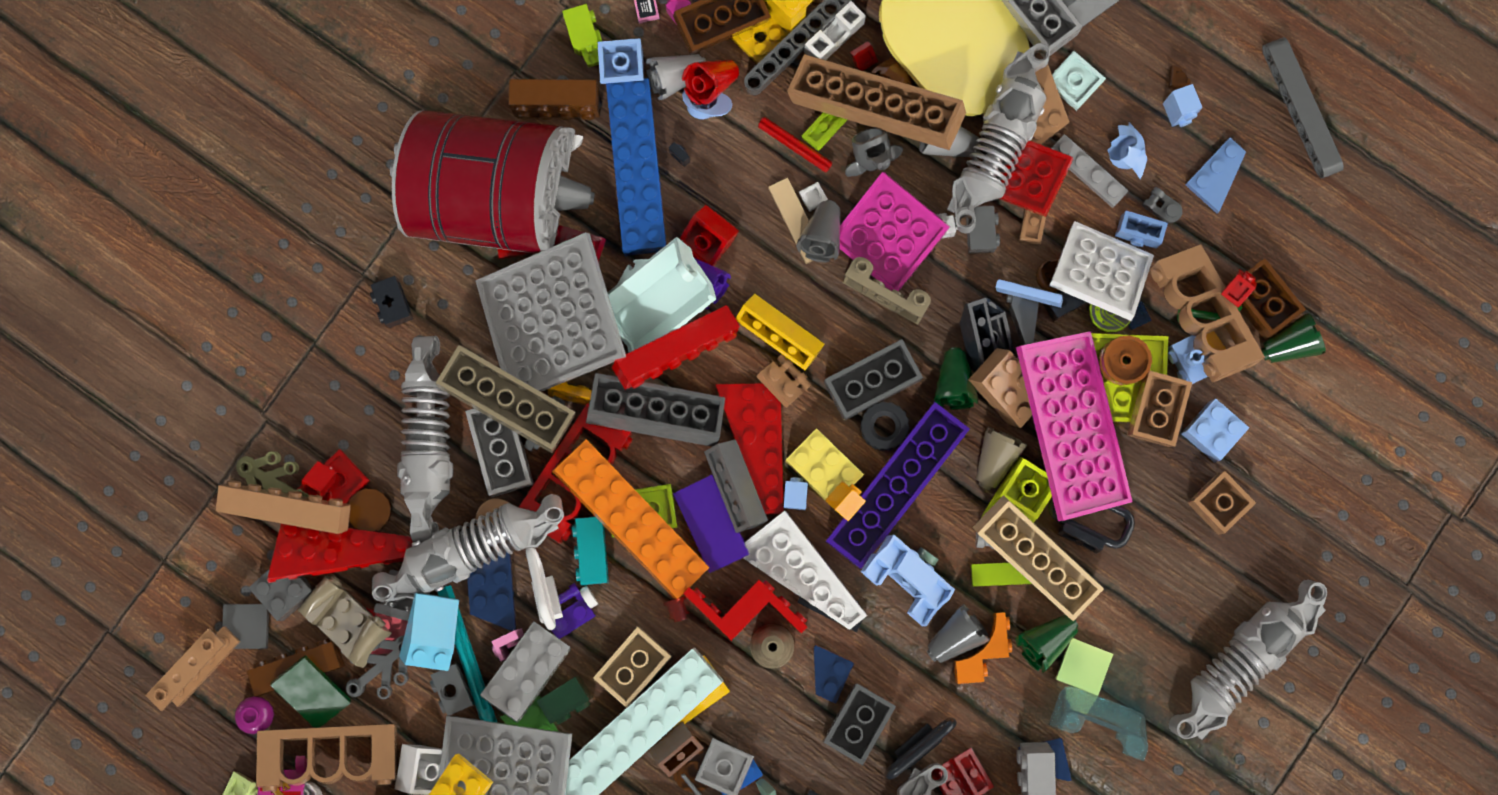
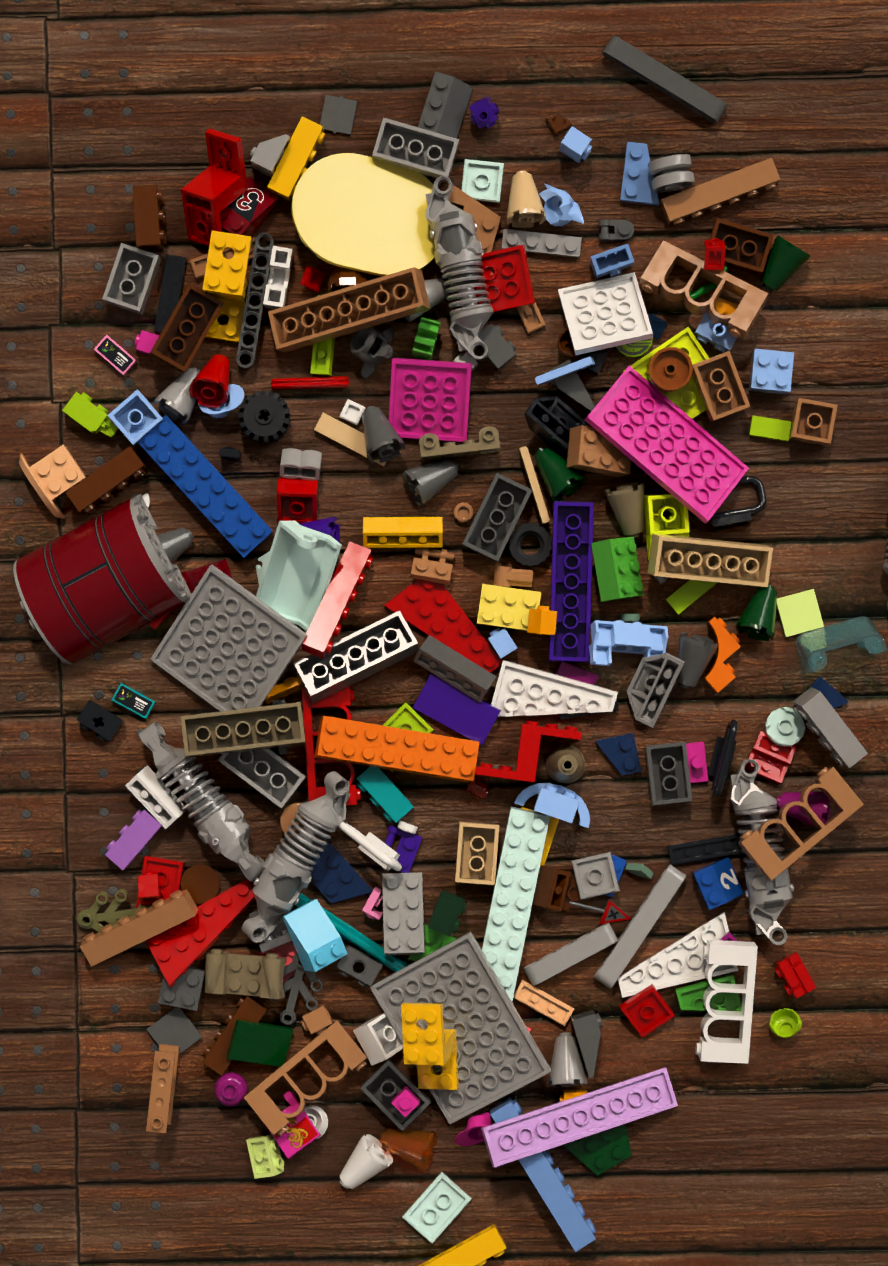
camera: 40 degrees left, 5 degrees up
(340, 426) = (133, 839): none -> medium lavender brick
(378, 710) = (317, 1020): none -> medium nougat brick
(387, 403) = (155, 797): none -> white brick
(434, 306) = (133, 700): none -> tile
(511, 60) = (53, 476): none -> light nougat piece
(729, 156) = (262, 430): none -> black wheel
(734, 207) = (300, 464): none -> light grey brick
(737, 674) = (556, 802): none -> light blue piece
(837, 302) = (429, 479): none -> dark grey cone
(842, 572) = (576, 673): none -> magenta tile
(844, 441) = (510, 577): none -> medium nougat piece
(846, 354) = (463, 512): none -> medium nougat tile
(892, 733) = (697, 762): none -> dark pink tile
(903, 633) = (653, 686): none -> light grey wedge
(926, 177) = (426, 338): none -> bright green gear
(927, 376) = (534, 485): none -> tan tile
(947, 504) = (617, 569): none -> bright green brick
(996, 760) = (784, 727): none -> light aqua tile
(1099, 124) = (524, 202): none -> tan cone
(1116, 15) = (487, 106): none -> dark purple brick
(1176, 480) = (770, 428): none -> lime tile
(1251, 190) = (671, 173): none -> light grey wheel
(1282, 239) = (720, 191): none -> medium nougat brick

